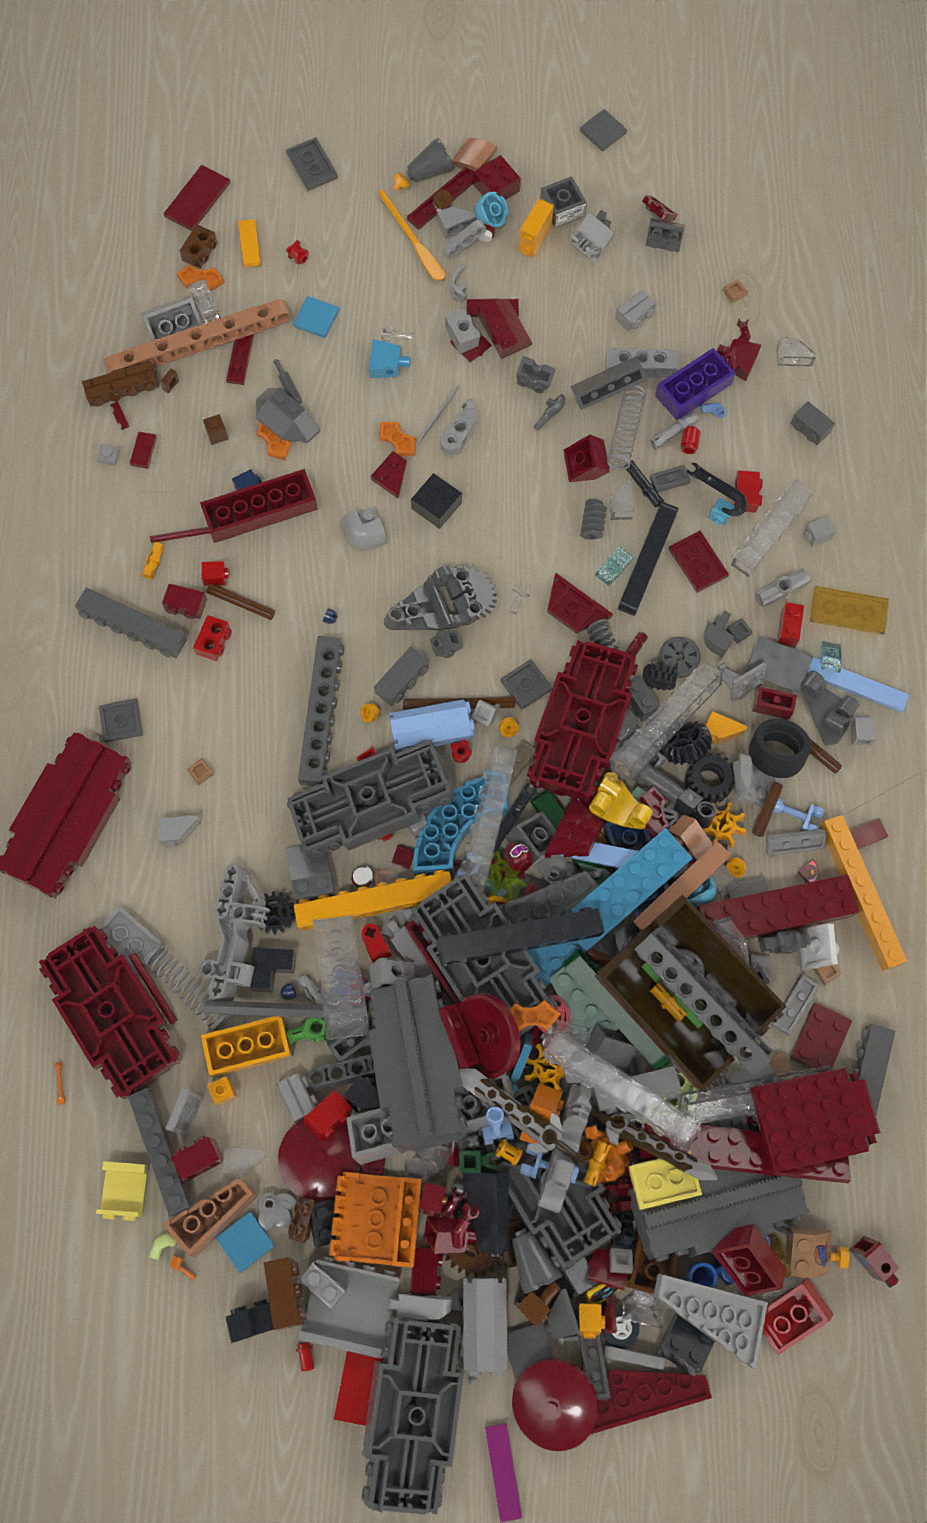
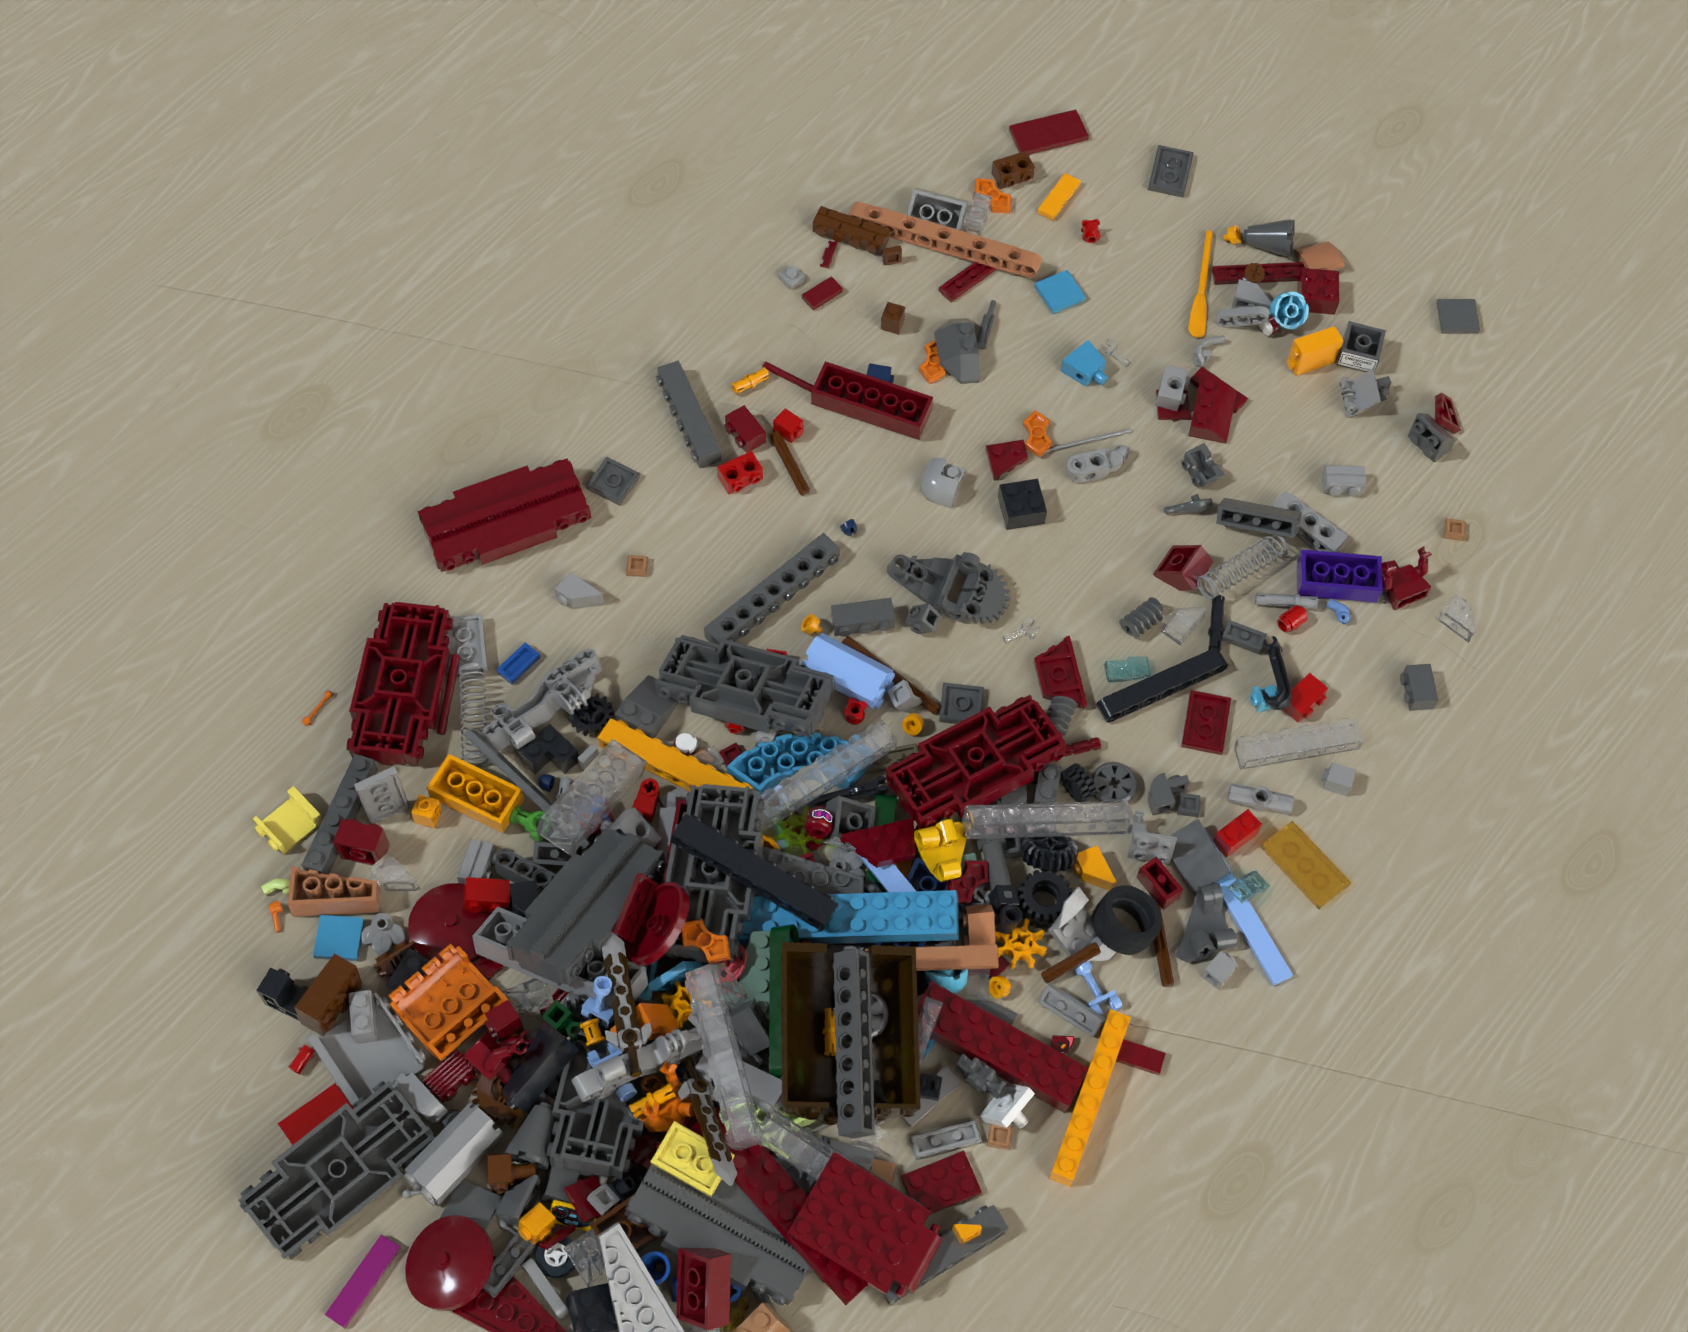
camera: 40 degrees right, 10 degrees down
(181, 919) = (518, 663): none -> blue tile
(302, 947) = (587, 757): none -> light grey tile
(877, 1060) = (966, 1232): none -> light orange slope

